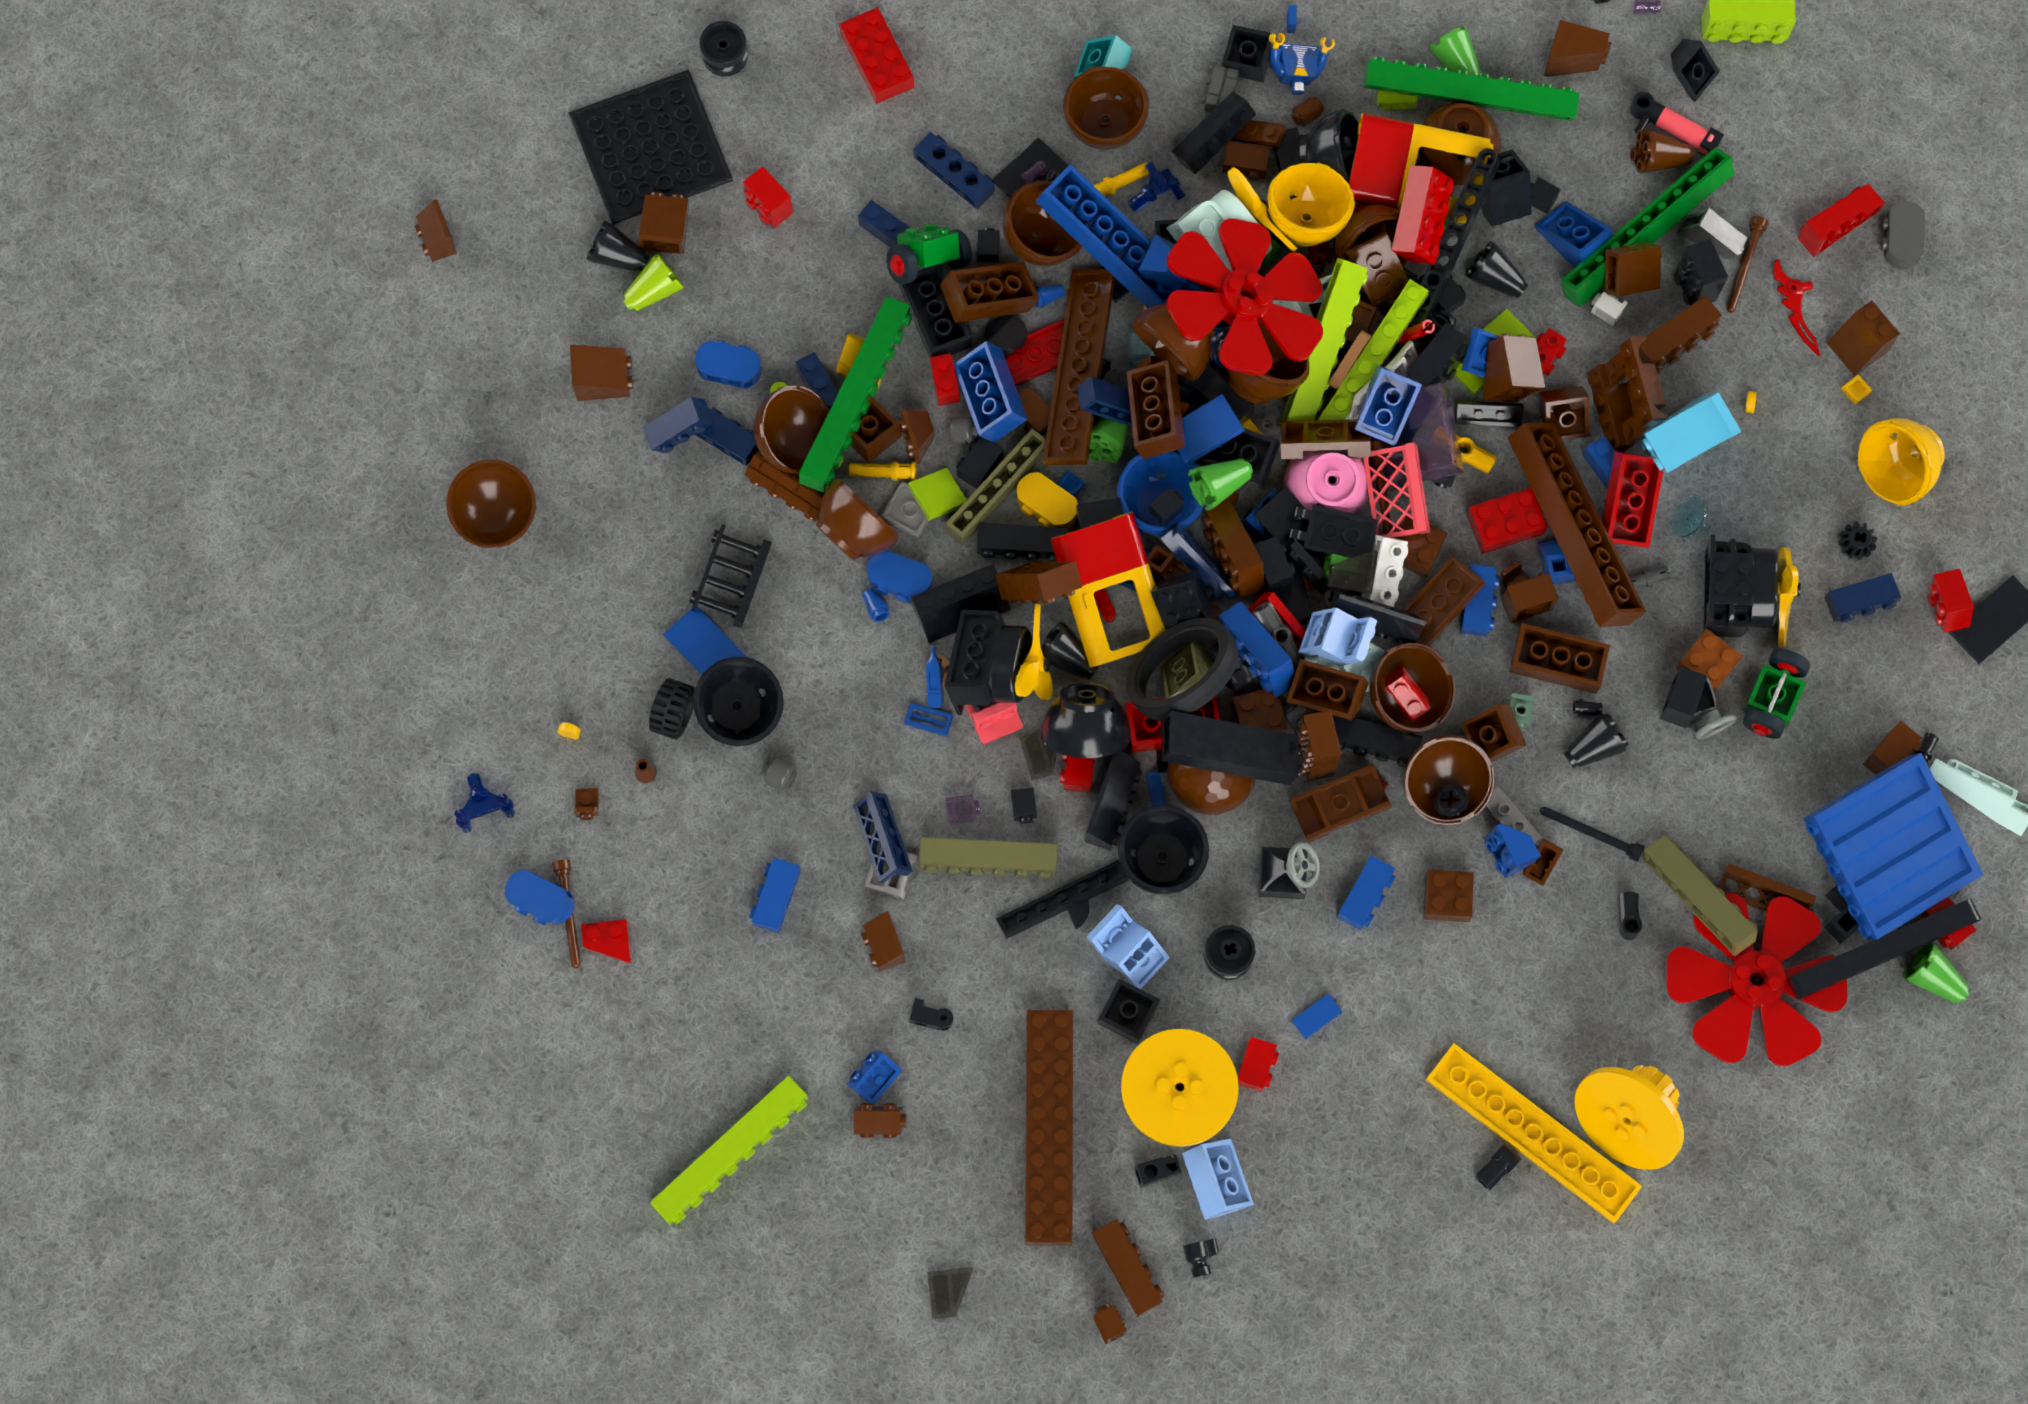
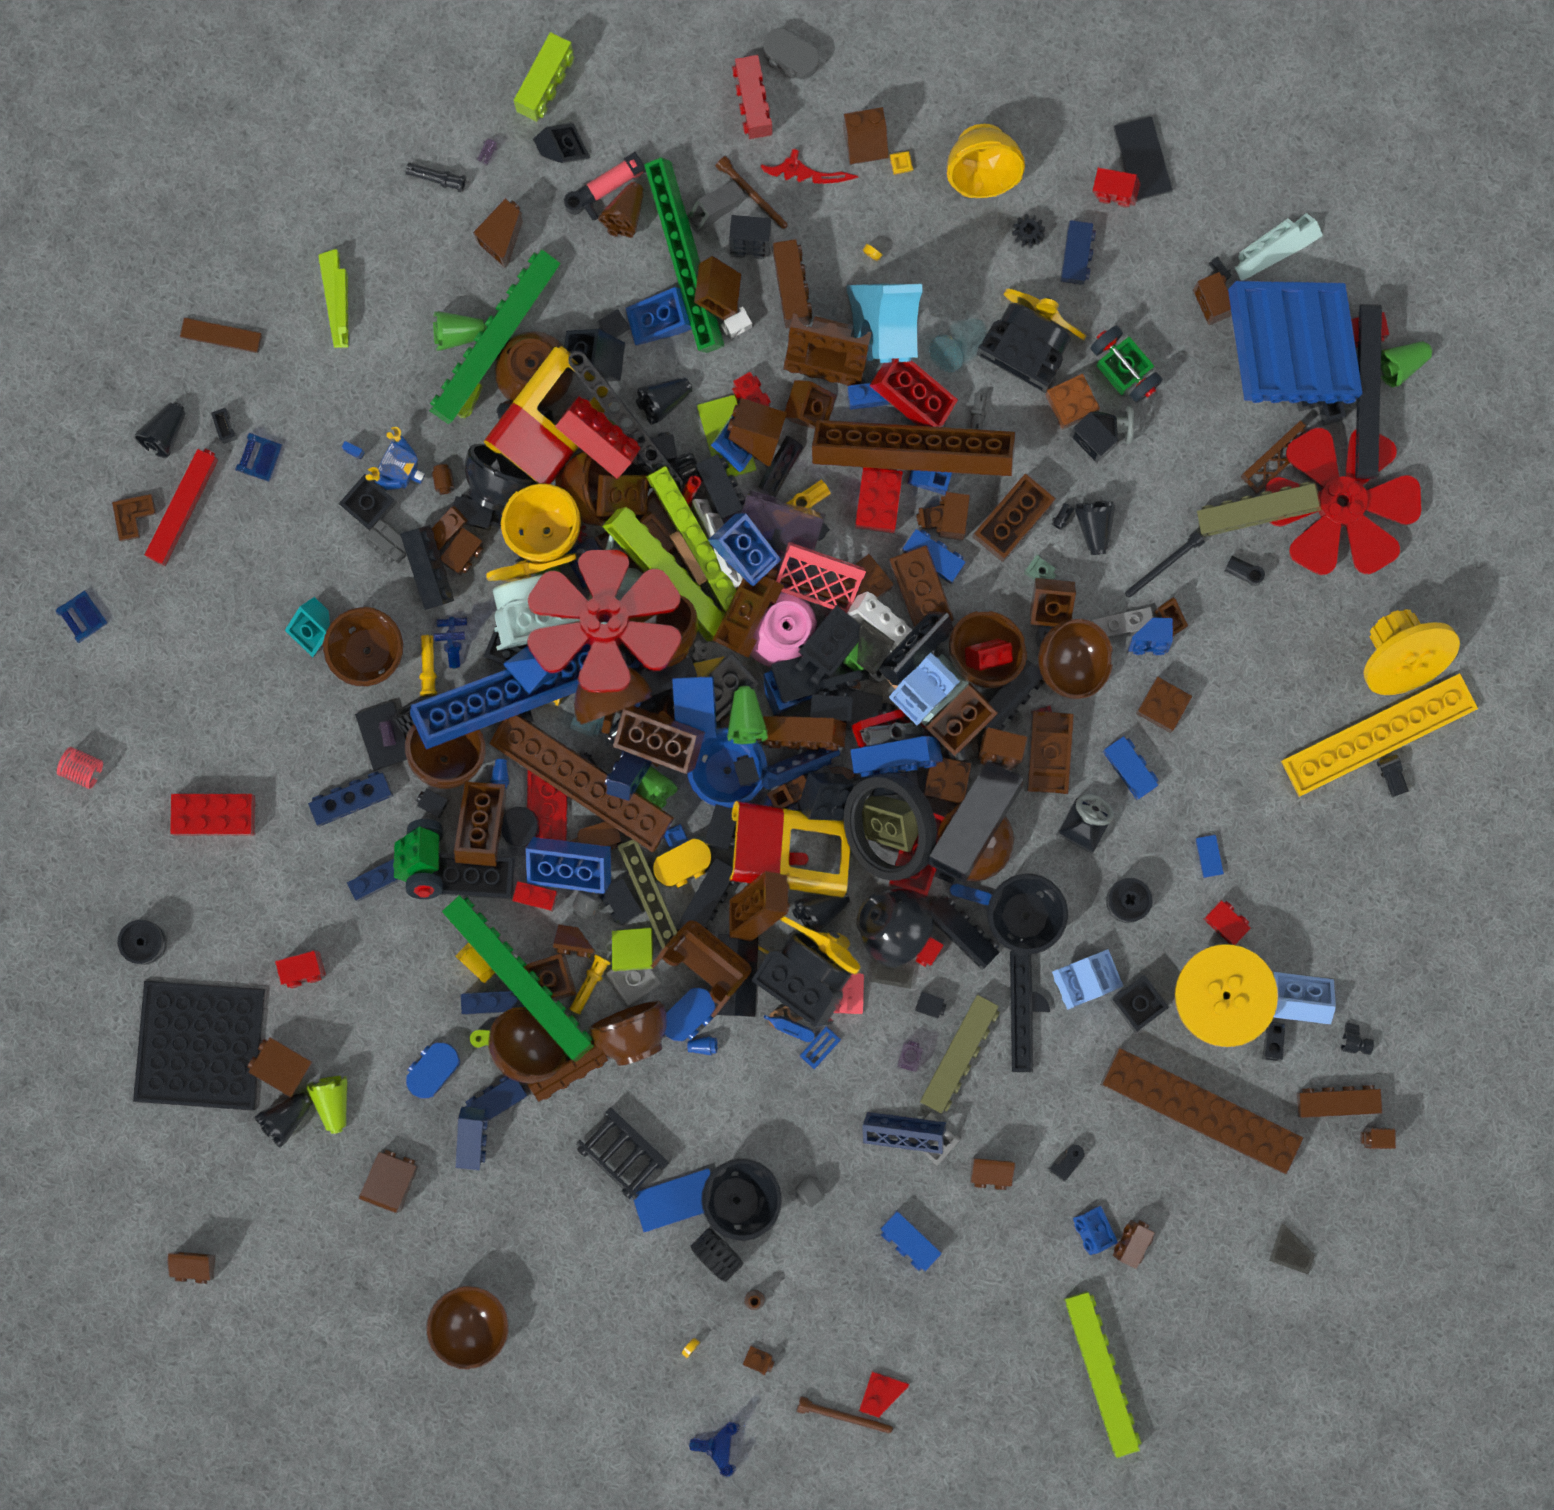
camera: 65 degrees left, 10 degrees up
(539, 897) = (823, 1435): blue brick -> none
(964, 558) = (708, 959): none -> reddish brown windscreen
(1443, 796) = (1081, 666): black gear -> none

